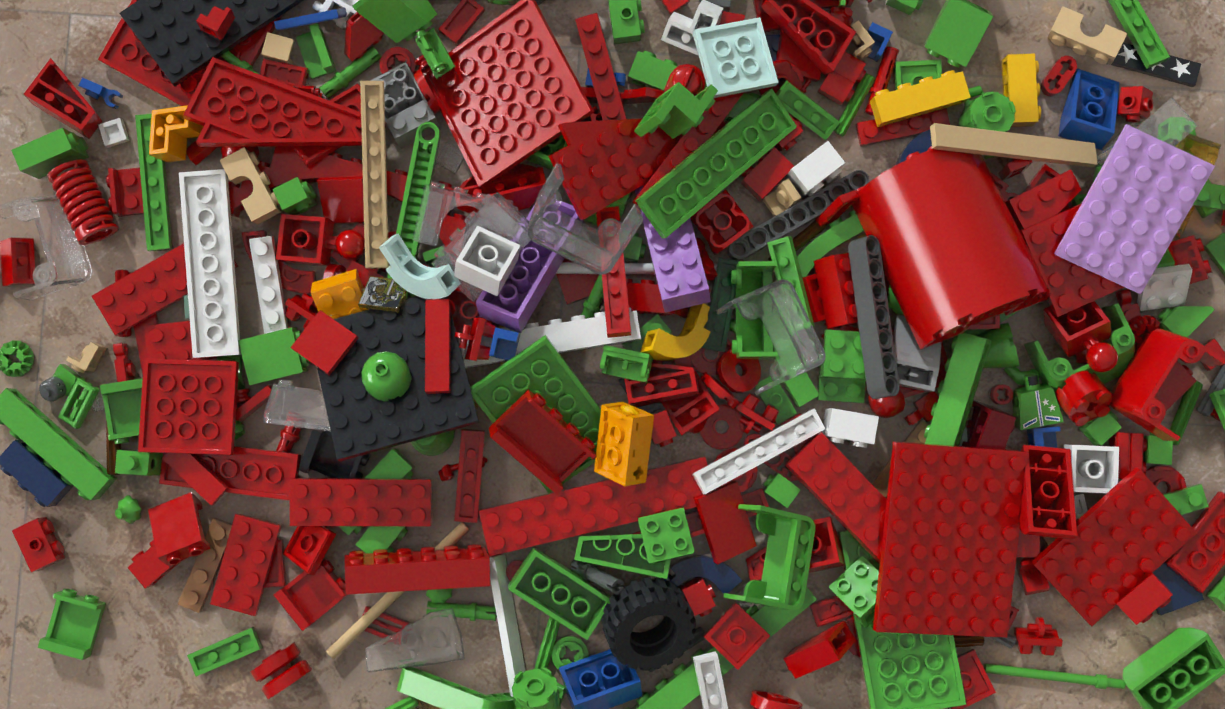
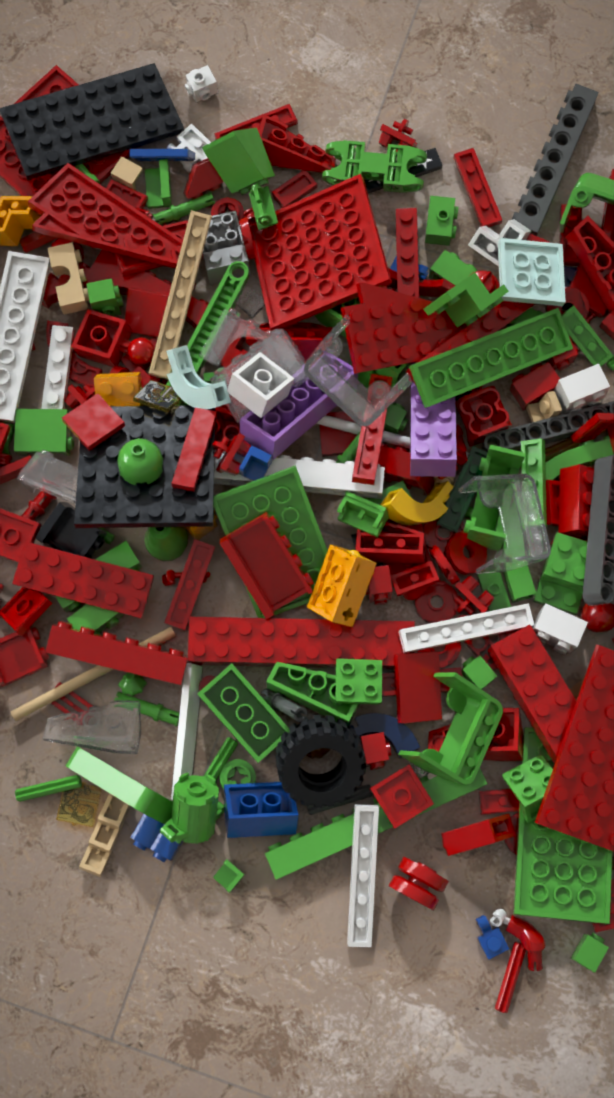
camera: 15 degrees right, 10 degrees down
(216, 22) = (80, 135): red panel -> none

